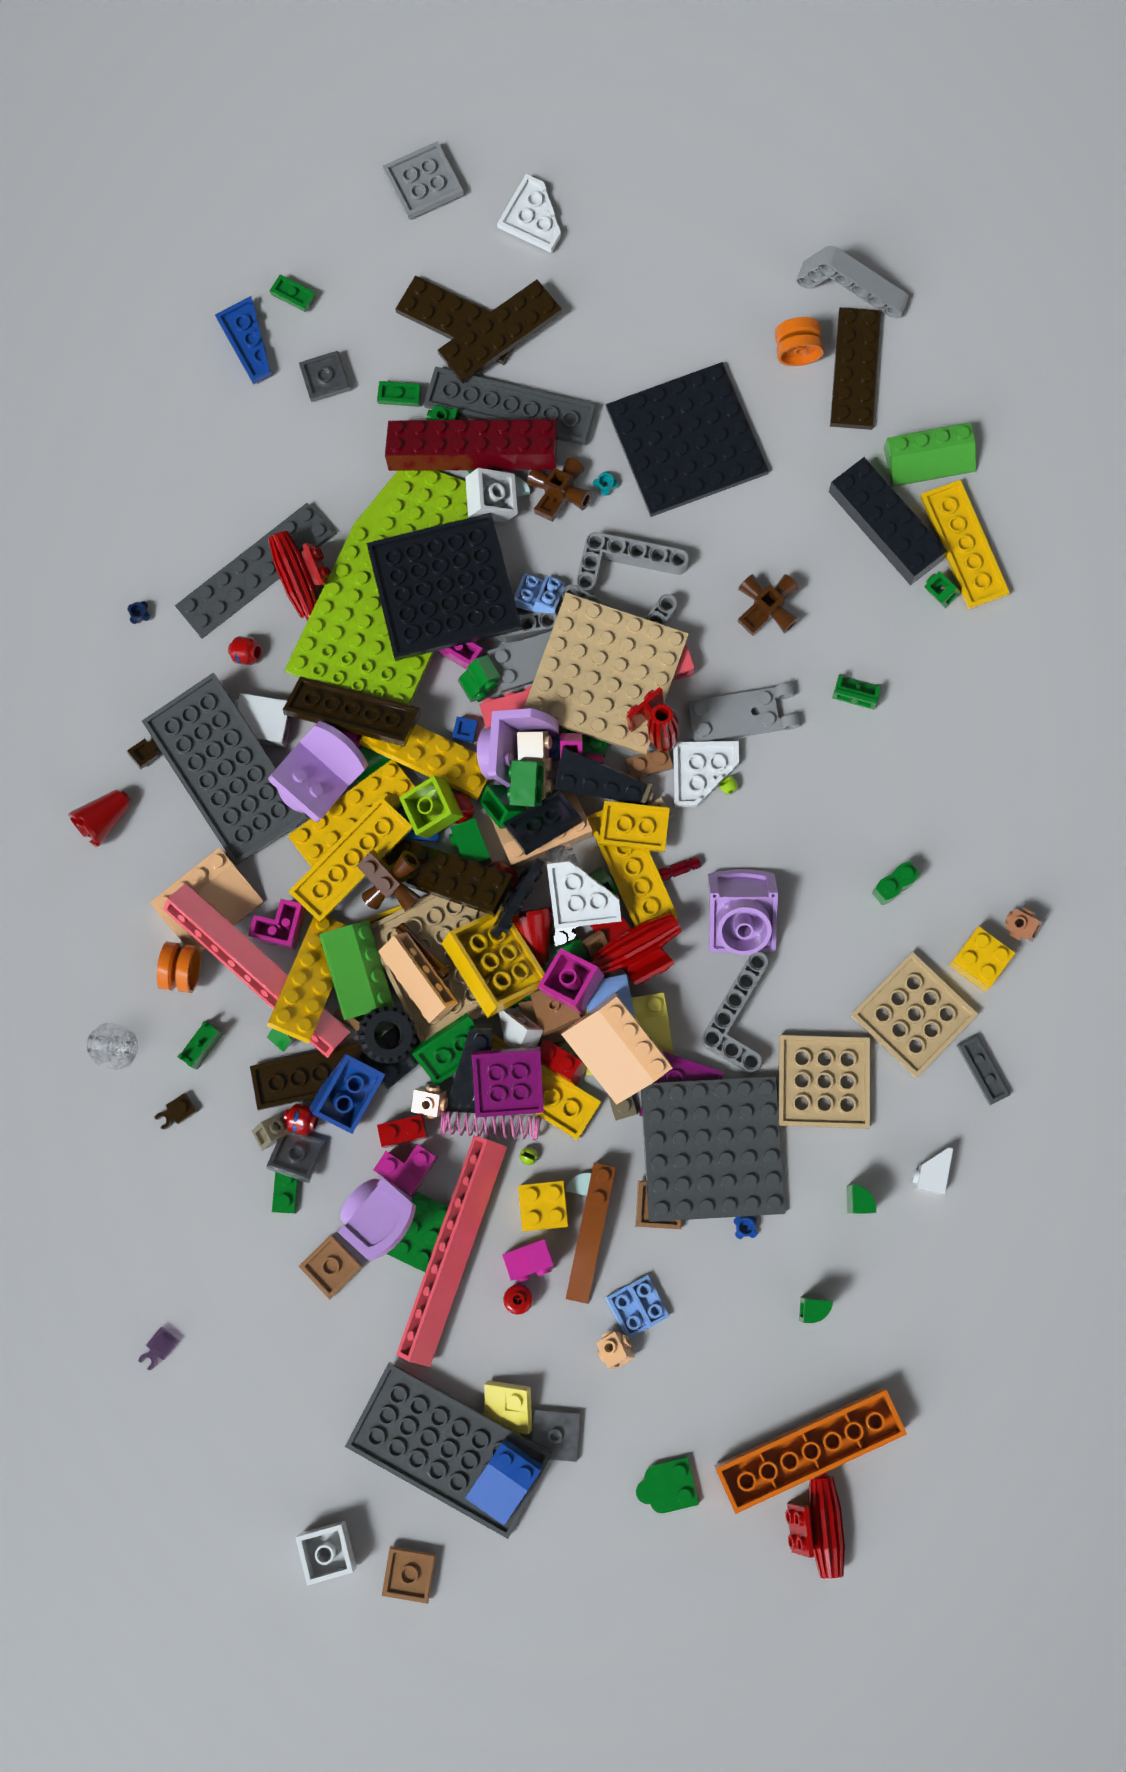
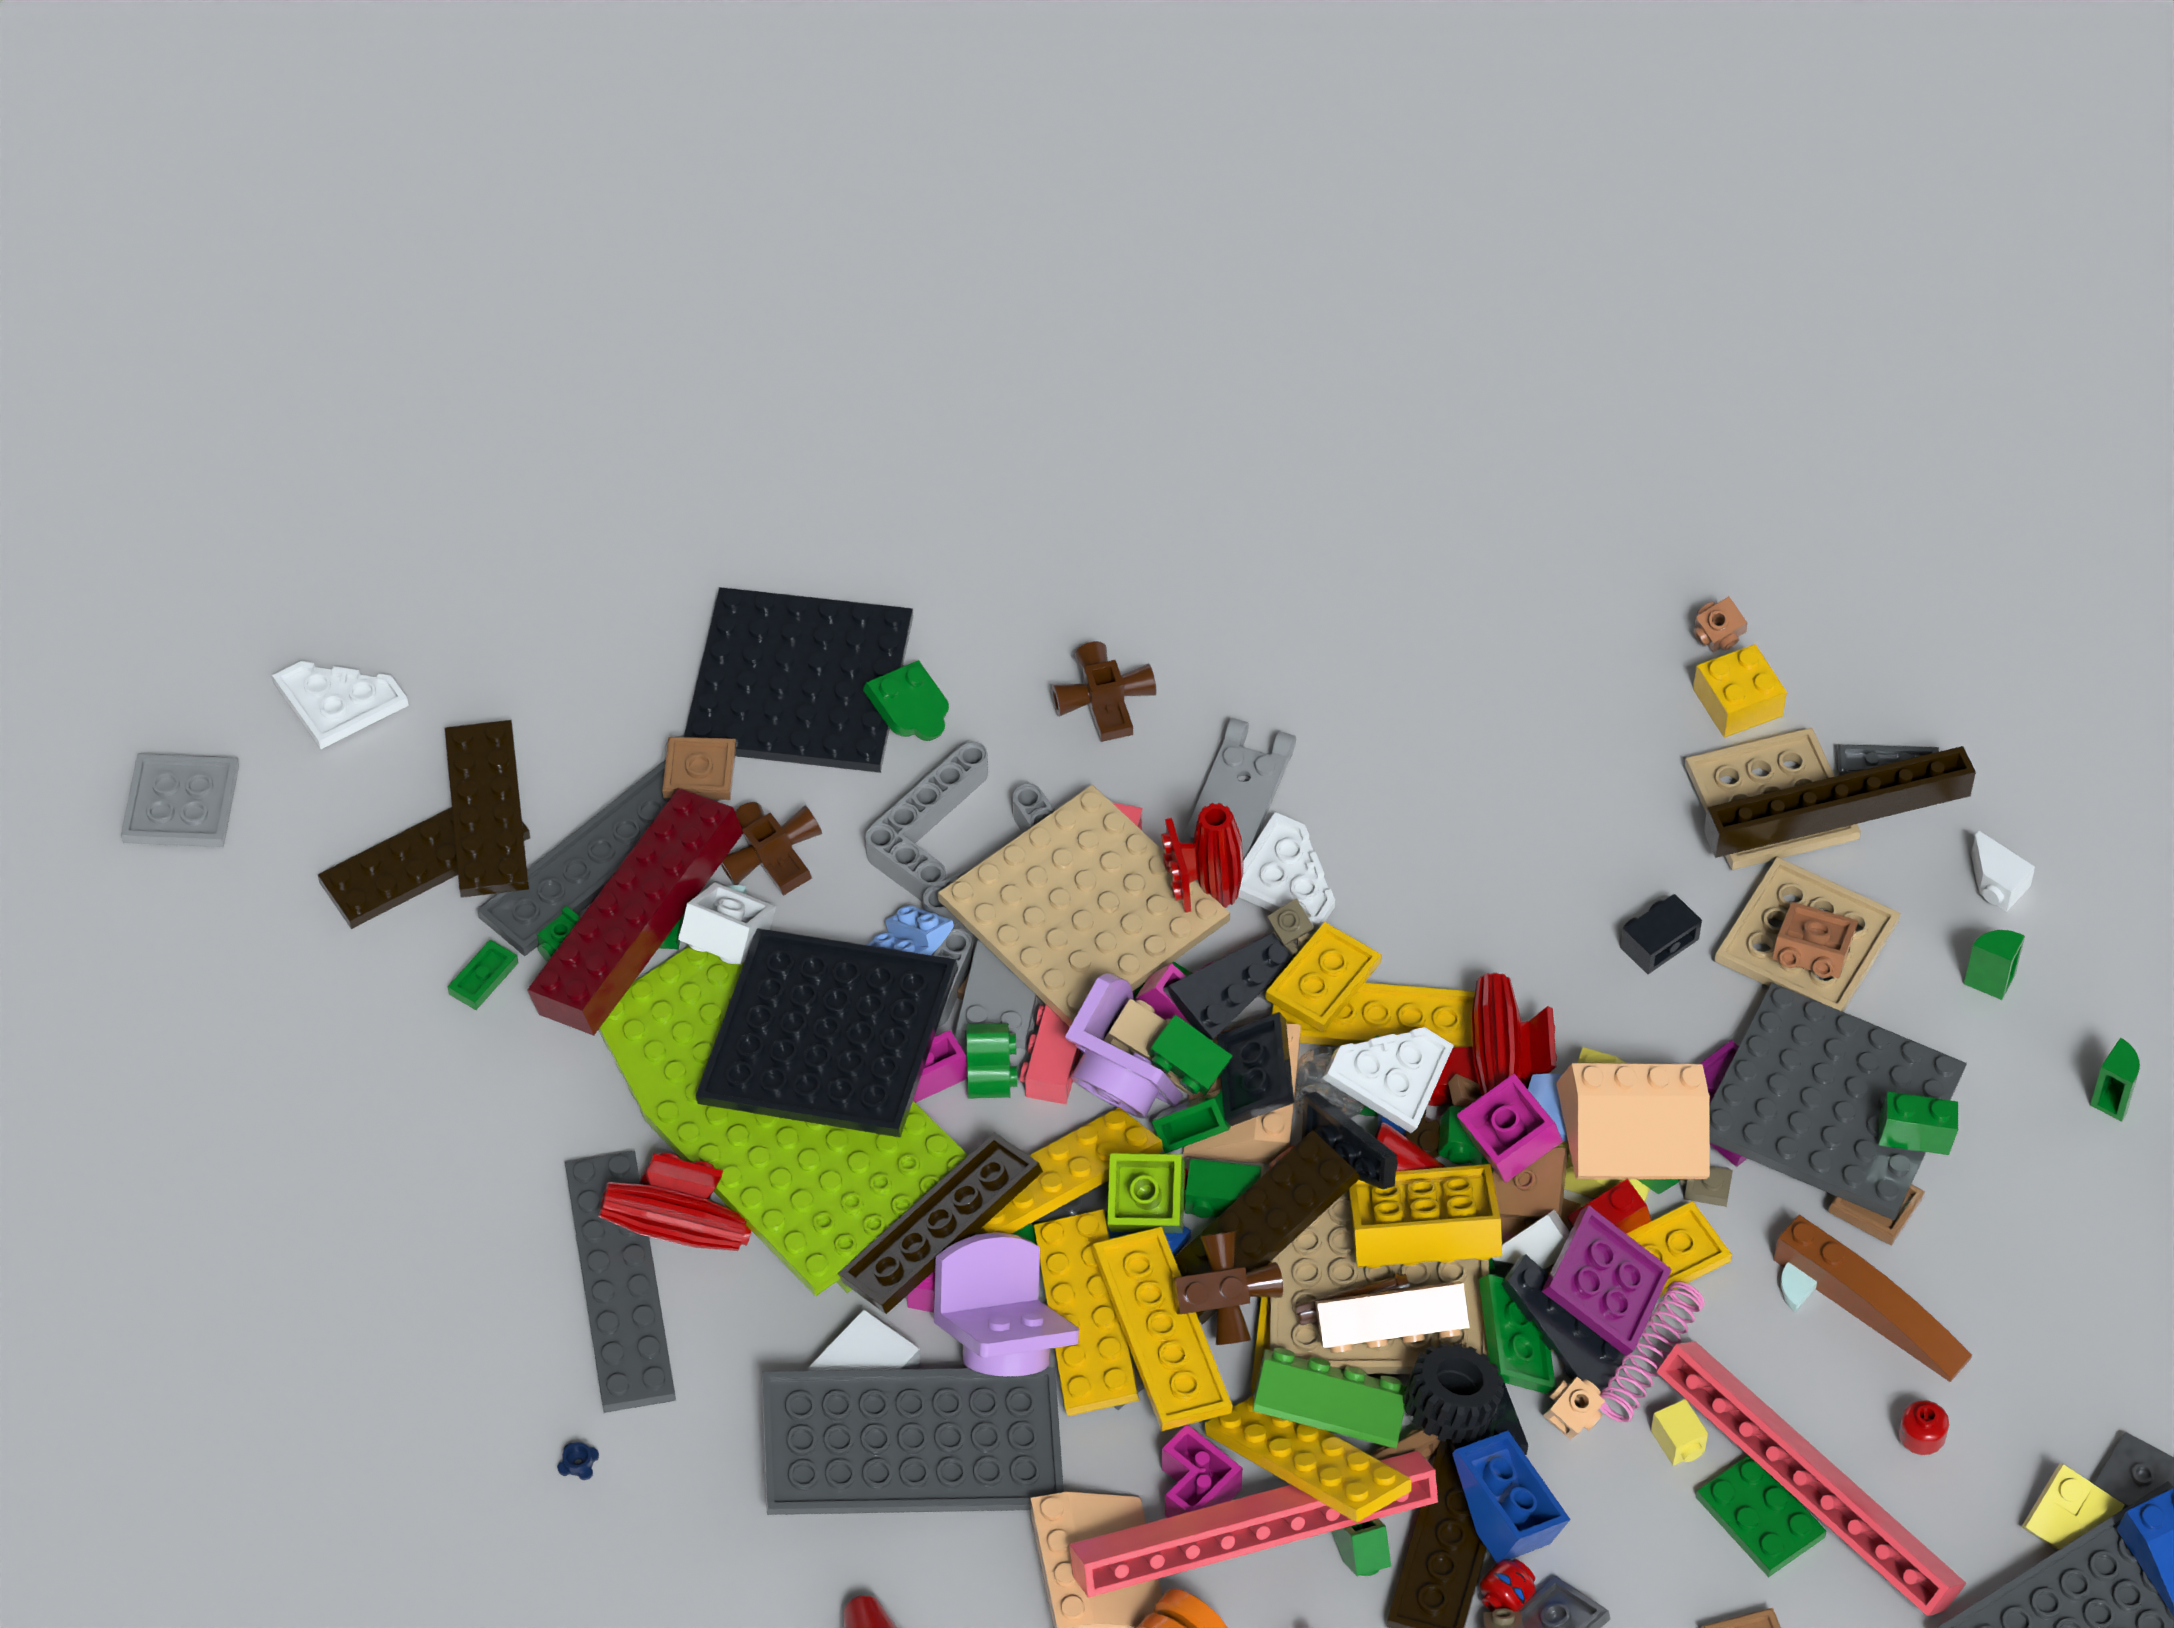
camera: 70 degrees left, 25 degrees down
(143, 753) = (807, 1546): dark brown plate -> none
(244, 650) = (739, 1342): red head -> none
(245, 337) = (241, 1126): blue wing -> none
(292, 293) = (225, 1035): green plate -> none
(324, 376) = (385, 1054): flat silver plate -> none
(376, 1217) = (1723, 1515): lavender piece -> none
(402, 1131) = (1599, 1464): red brick -> none
(407, 1174) = (1663, 1486): dark pink brick -> none
(446, 1166) = (1679, 1432): none -> light yellow brick
(465, 729) = (1046, 1122): blue plate -> none
(526, 1160) = (1724, 1335): lime hinge -> none
(528, 1260) = (1875, 1378): dark pink brick -> none
(543, 1206) = (1805, 1337): yellow brick -> none
(586, 422) = (700, 767): none -> medium nougat plate
(605, 477) = (793, 789): teal plate -> none
(615, 1349) = (2067, 1344): light nougat brick -> none
(637, 1306) = (2007, 1296): light blue slope -> none
(653, 763) = (1239, 930): medium nougat plate -> none
(658, 789) = (1291, 921): none -> dark tan bracket
(679, 868) = (1411, 960): dark red axle -> none
(700, 505) = (909, 702): none -> green plate
(710, 1208) = (1918, 1123): none -> green brick
(728, 785) = (1328, 853): lime hinge -> none
(732, 1013) = (1654, 993): light grey beam -> none
(742, 911) = (1524, 907): lavender piece -> none
(750, 1231) = (1970, 1115): blue plate -> none
(777, 996) = (1660, 933): none -> black brick
(799, 341) = (761, 485): orange wheel -> none
(814, 1088) = (1814, 940): none -> nougat plate
(853, 276) = (709, 384): light grey beam -> none
(855, 368) = (835, 455): dark brown plate -> none
(856, 692) = (1290, 658): green hinge -> none
(887, 521) = (1076, 514): black brick -> none
(892, 885) = (1581, 733): green brick -> none
(922, 1058) = (1839, 801): none -> dark brown brick
(931, 454) = (1016, 430): bright green slope -> none
(948, 595) = (1209, 492): green brick -> none
(965, 543) = (1163, 453): yellow plate -> none

